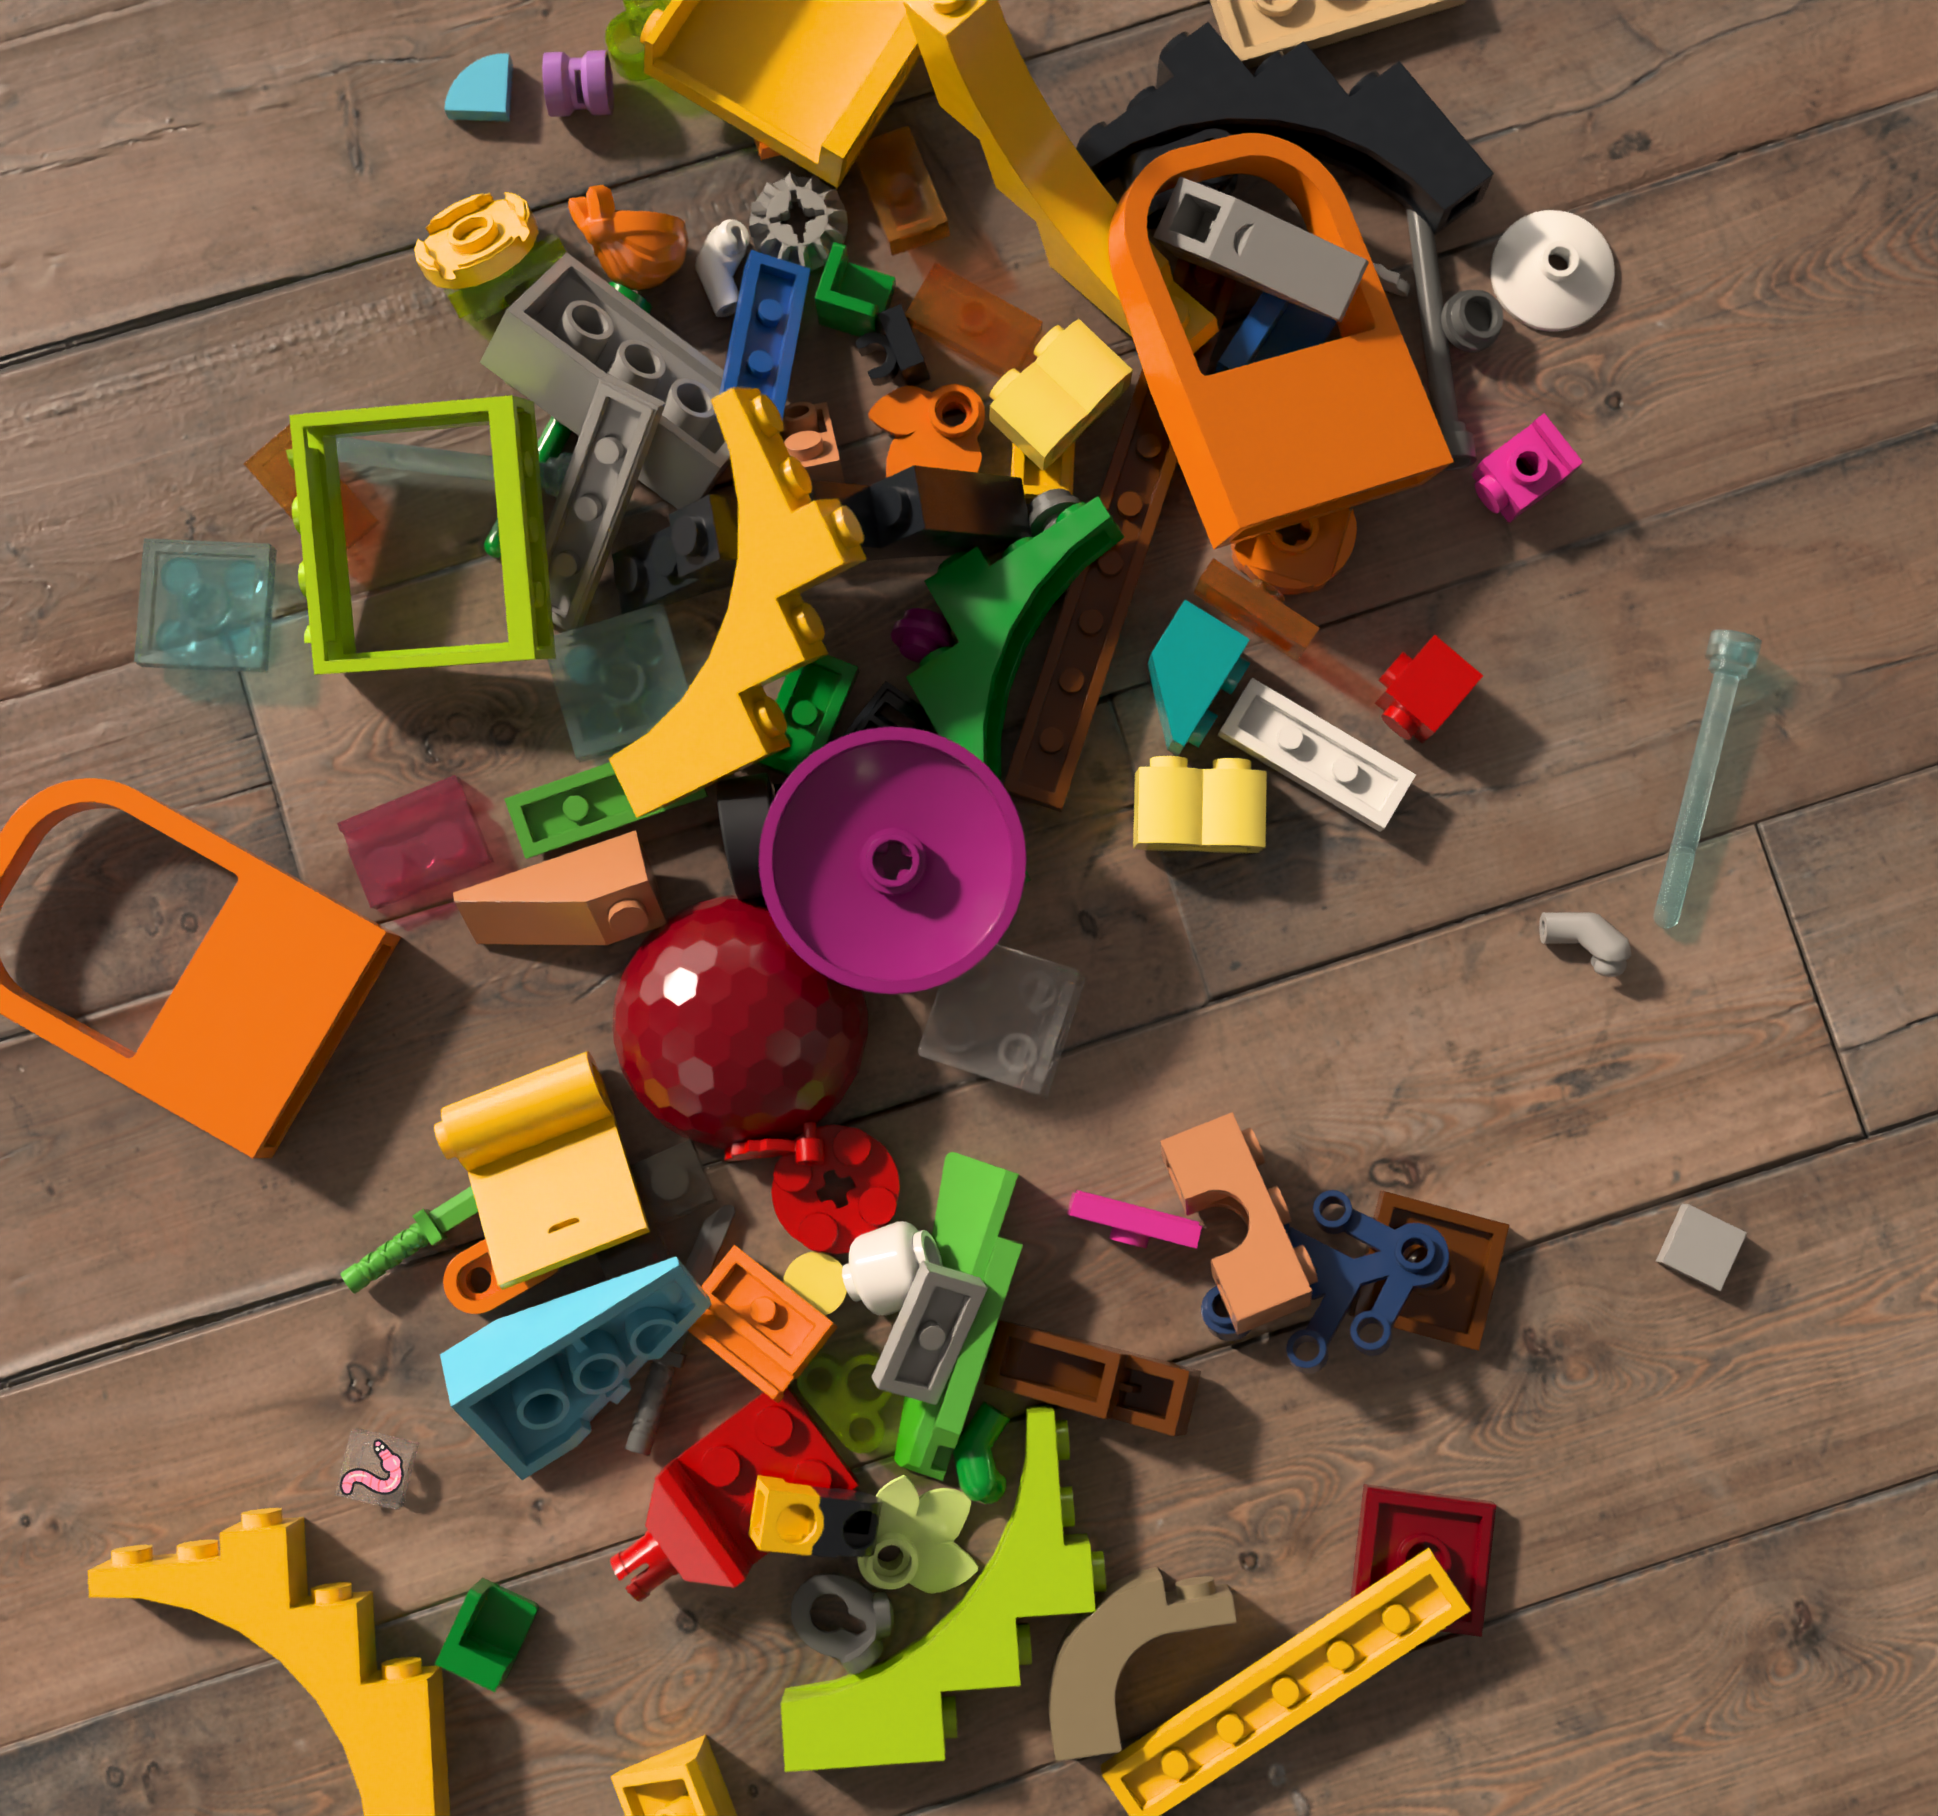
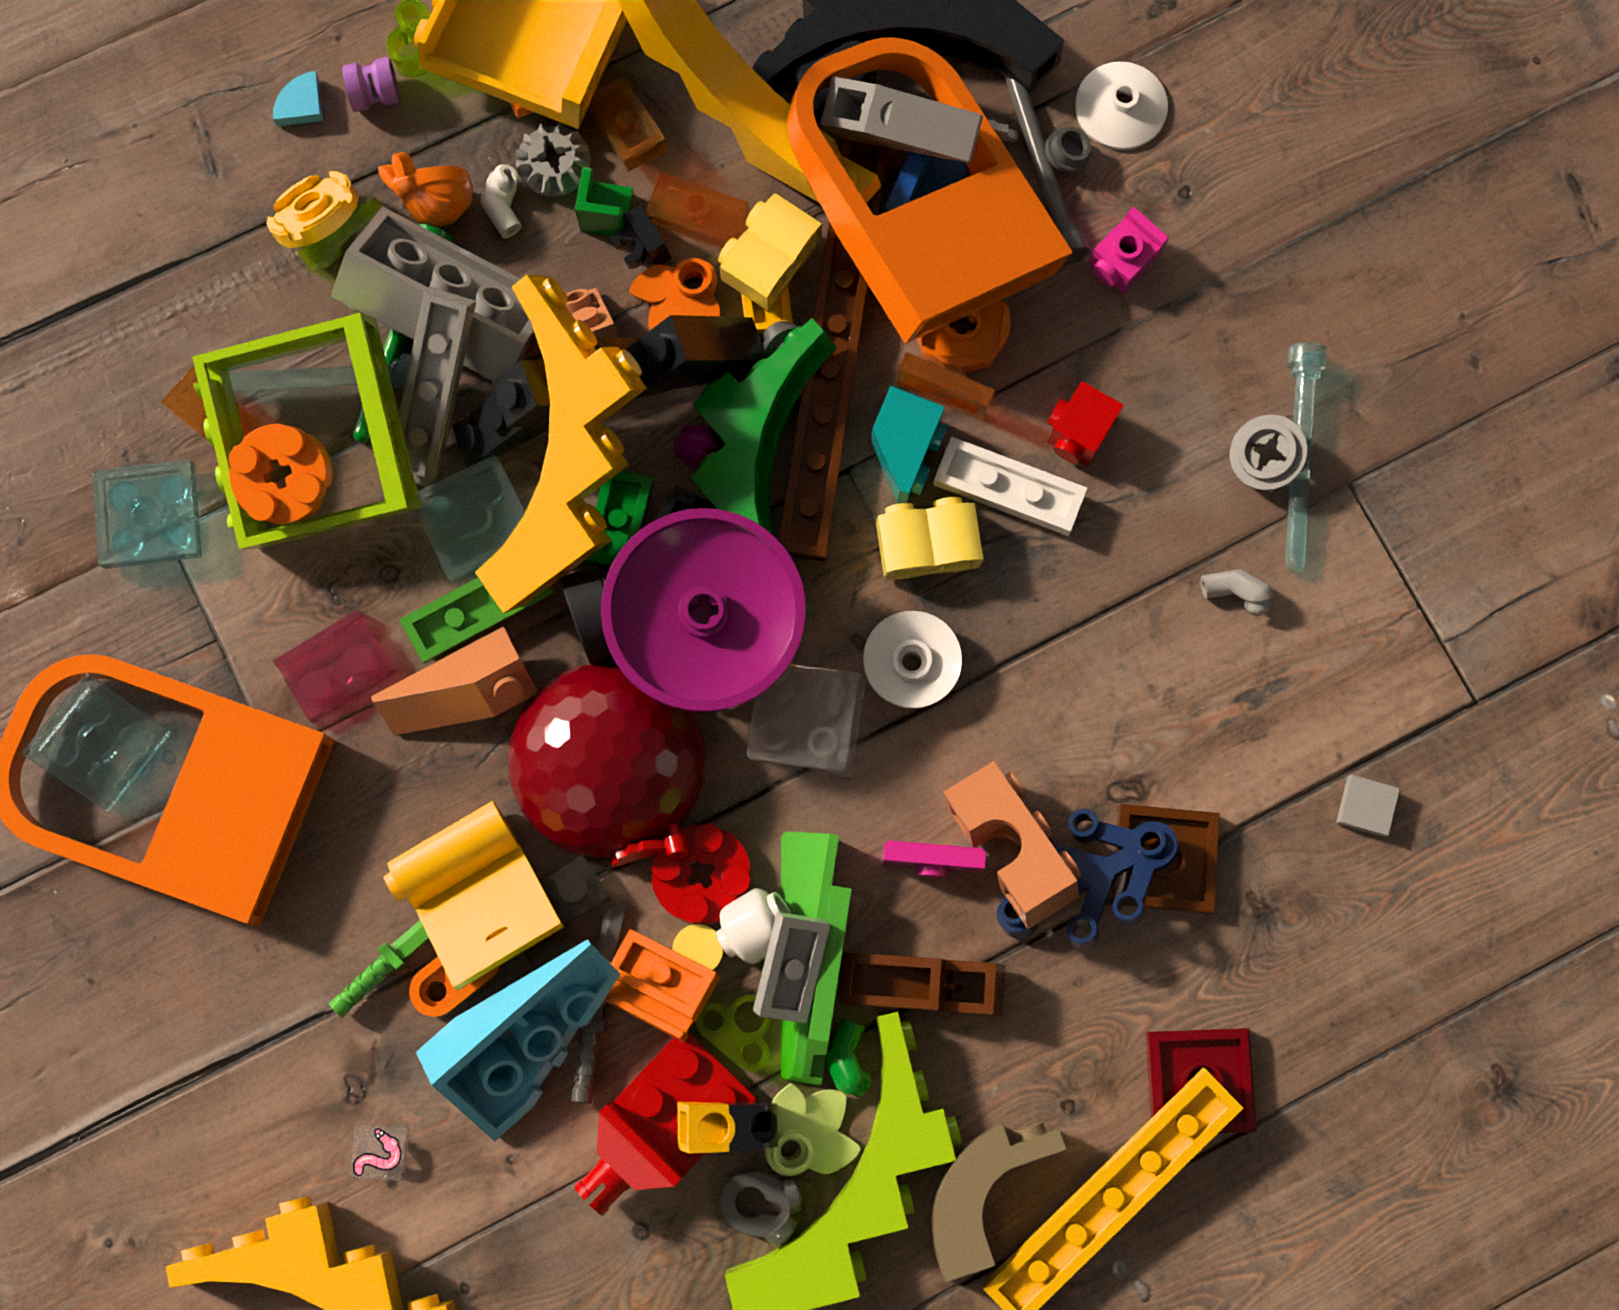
camera: 10 degrees left, 5 degrees down
(98, 892) = (96, 742): none -> clear light blue plate
(347, 569) = (254, 461): none -> orange plate
(487, 1634) = (487, 1265): green panel -> none
(766, 327) = (541, 234): blue plate -> none
(1179, 941) = (916, 635): none -> white dish
(1657, 739) = (1264, 432): none -> light grey gear

